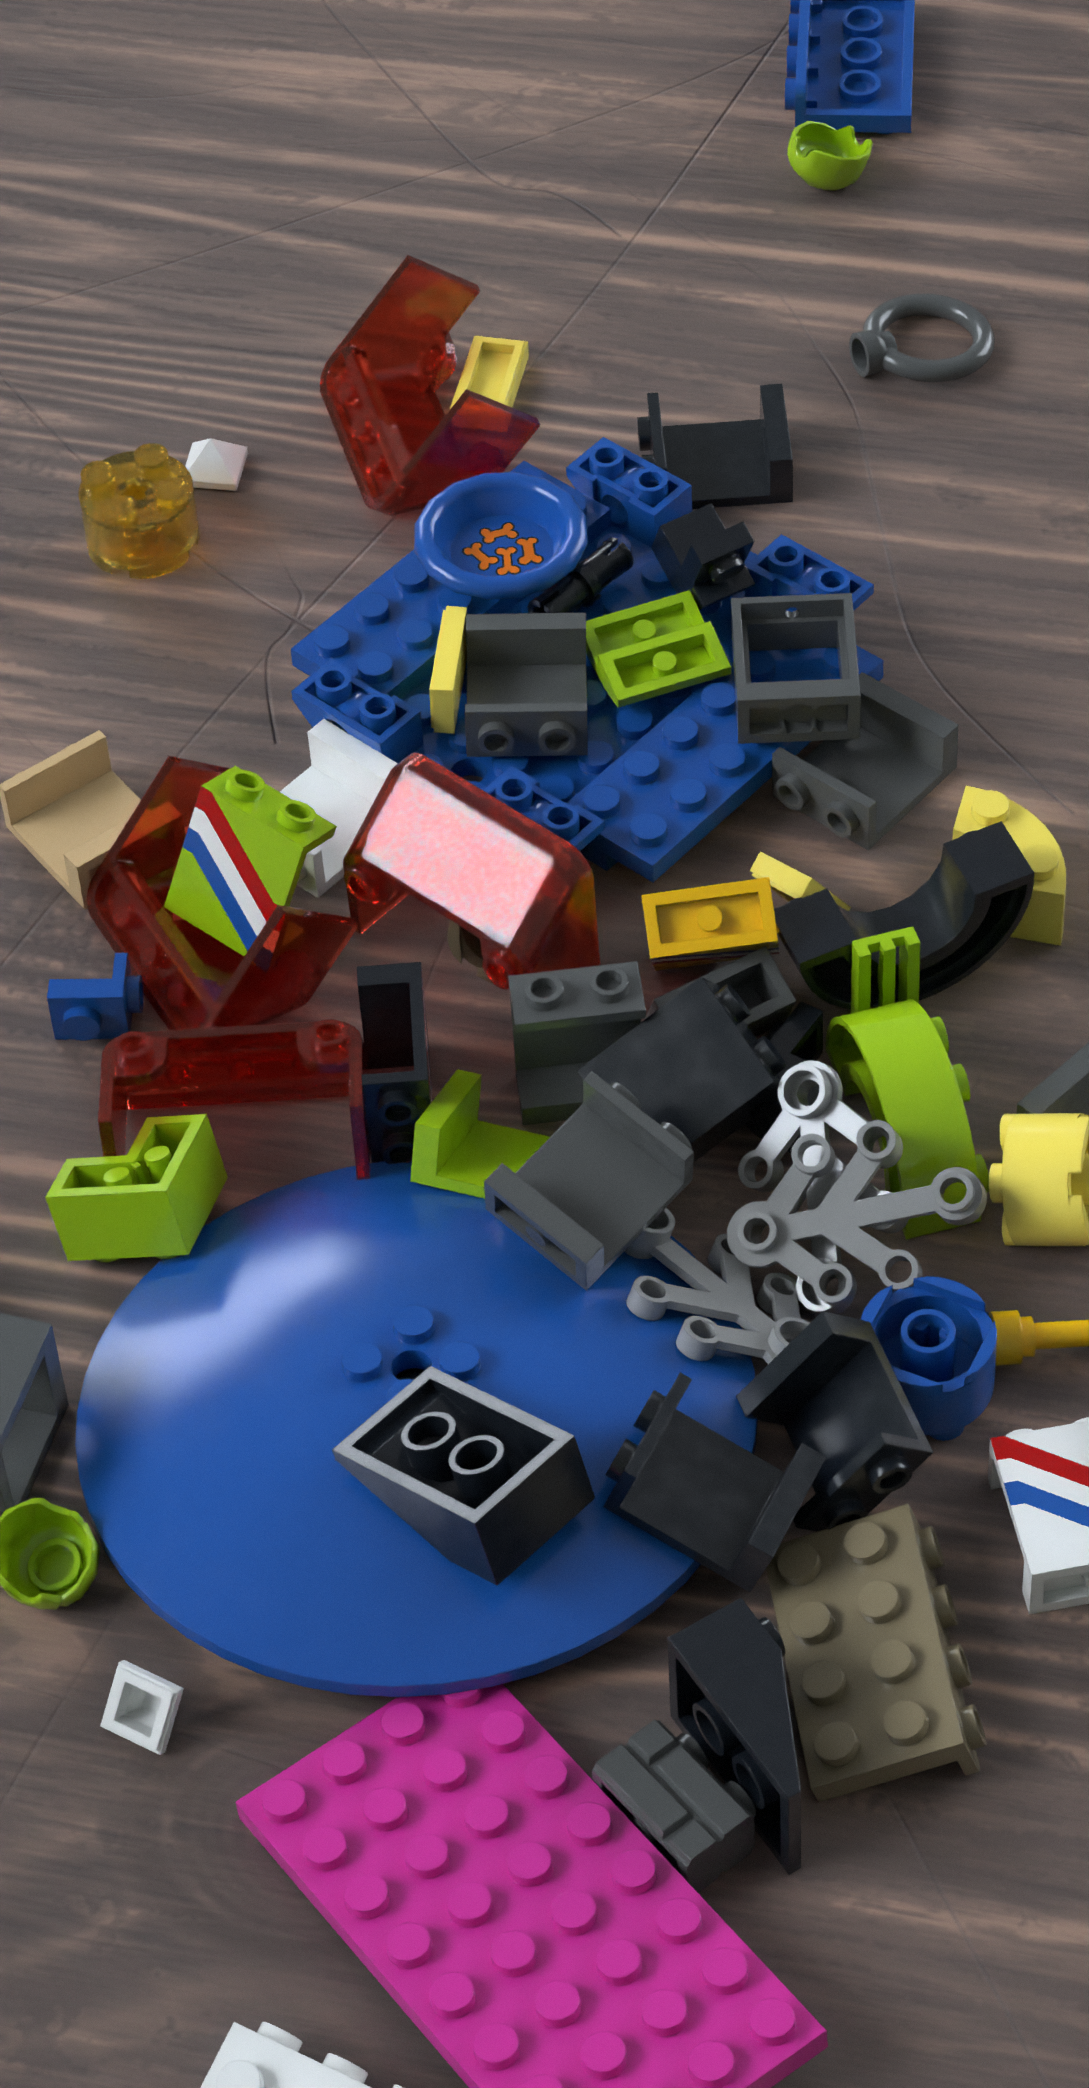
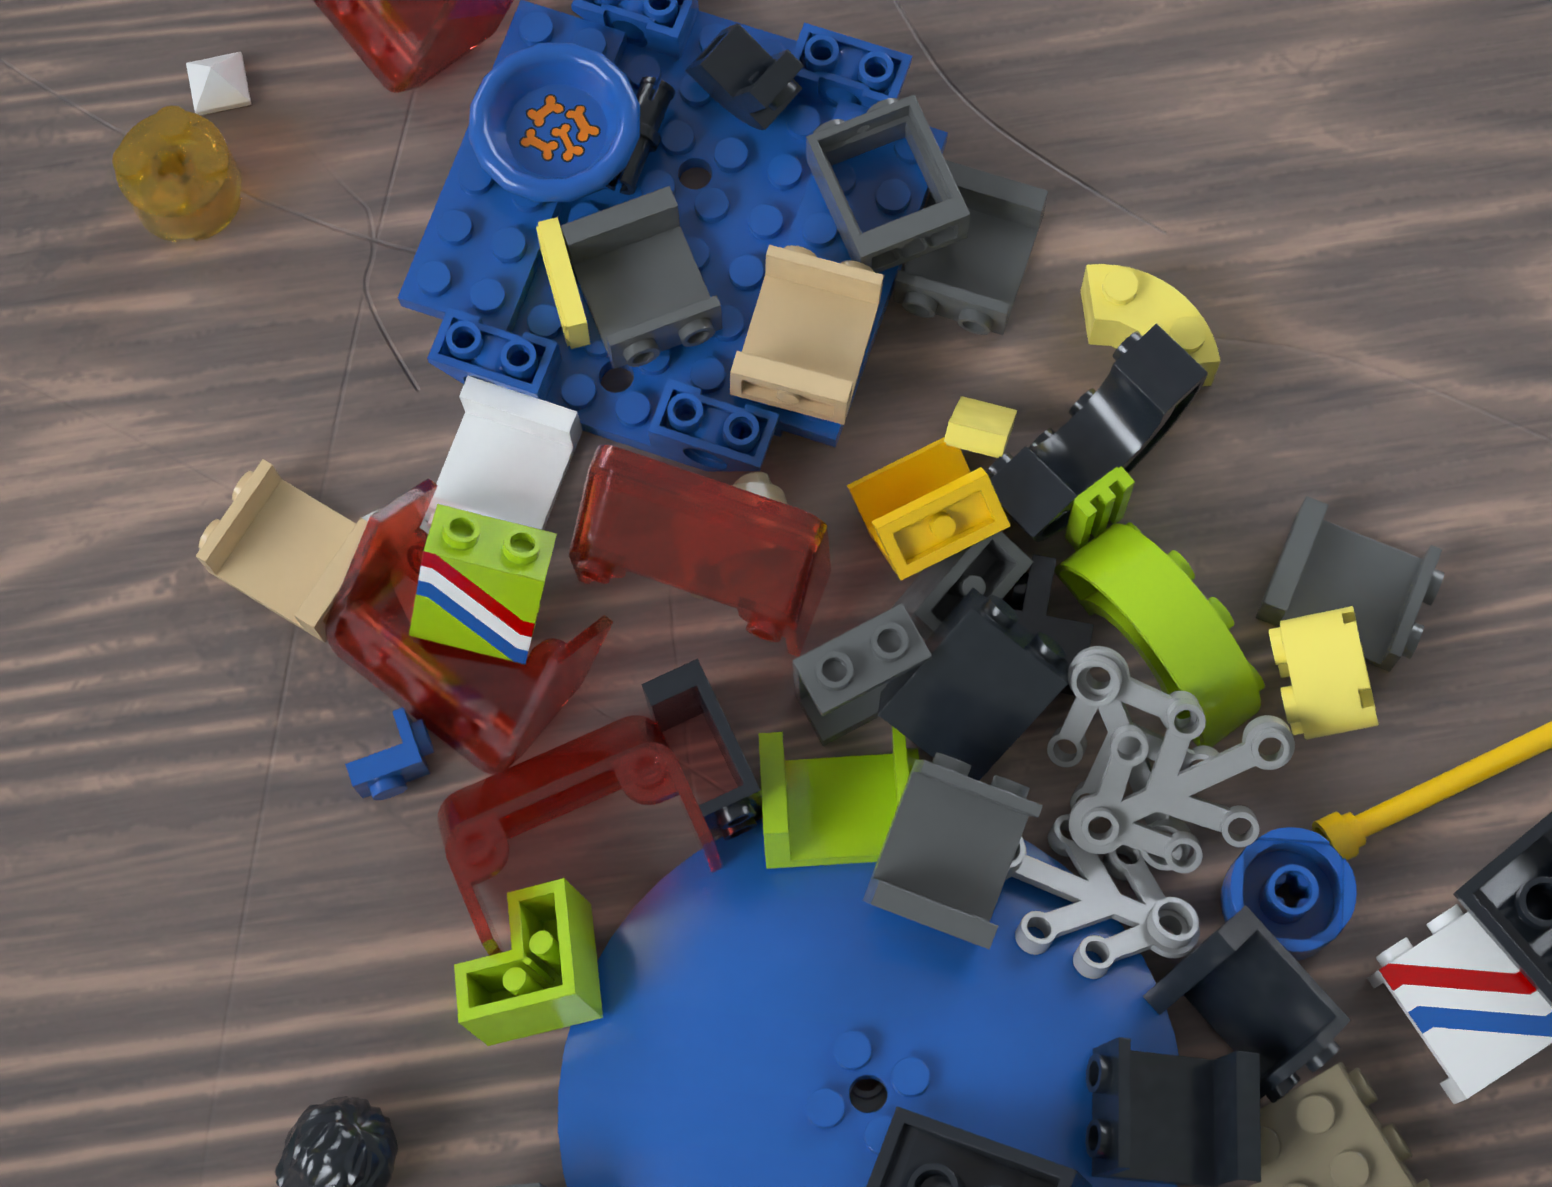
camera: 20 degrees left, 25 degrees up
(654, 649) = (739, 192): lime slope -> none
(664, 762) = (807, 334): none -> tan panel

